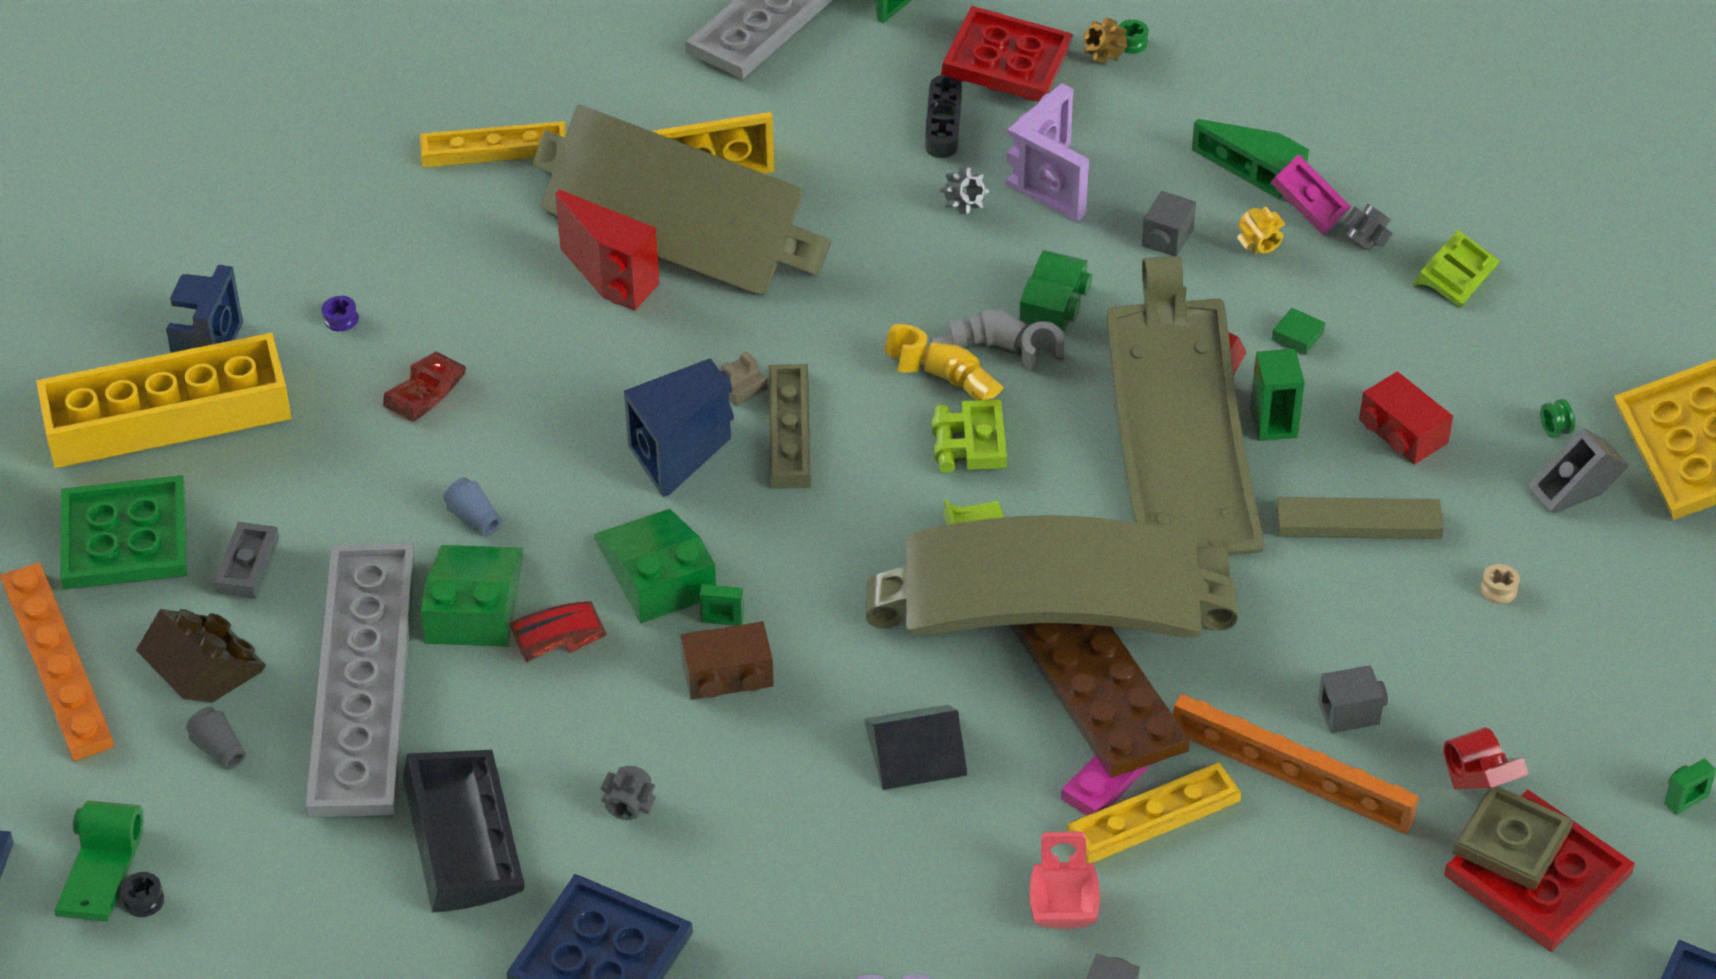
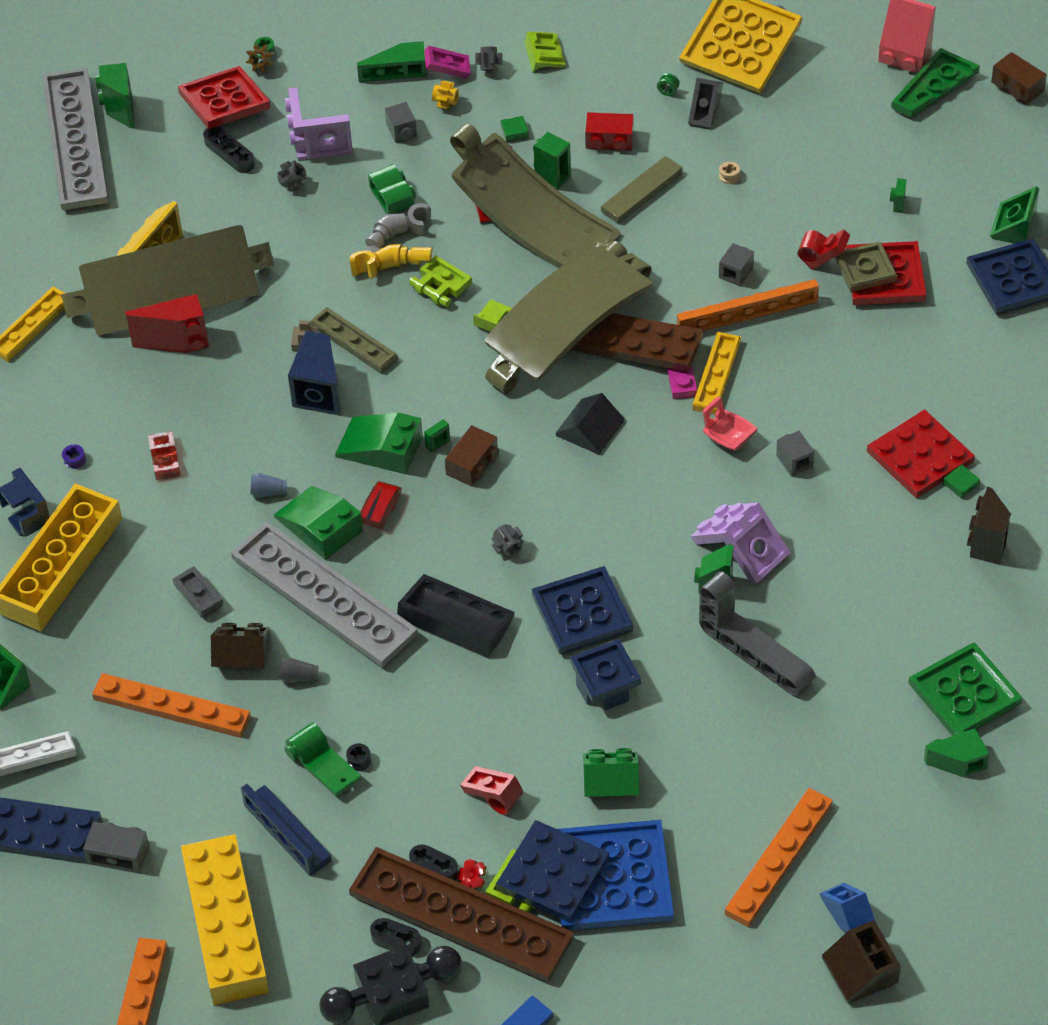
camera: 45 degrees left, 5 degrees up
(123, 532) = (121, 628): green plate -> none

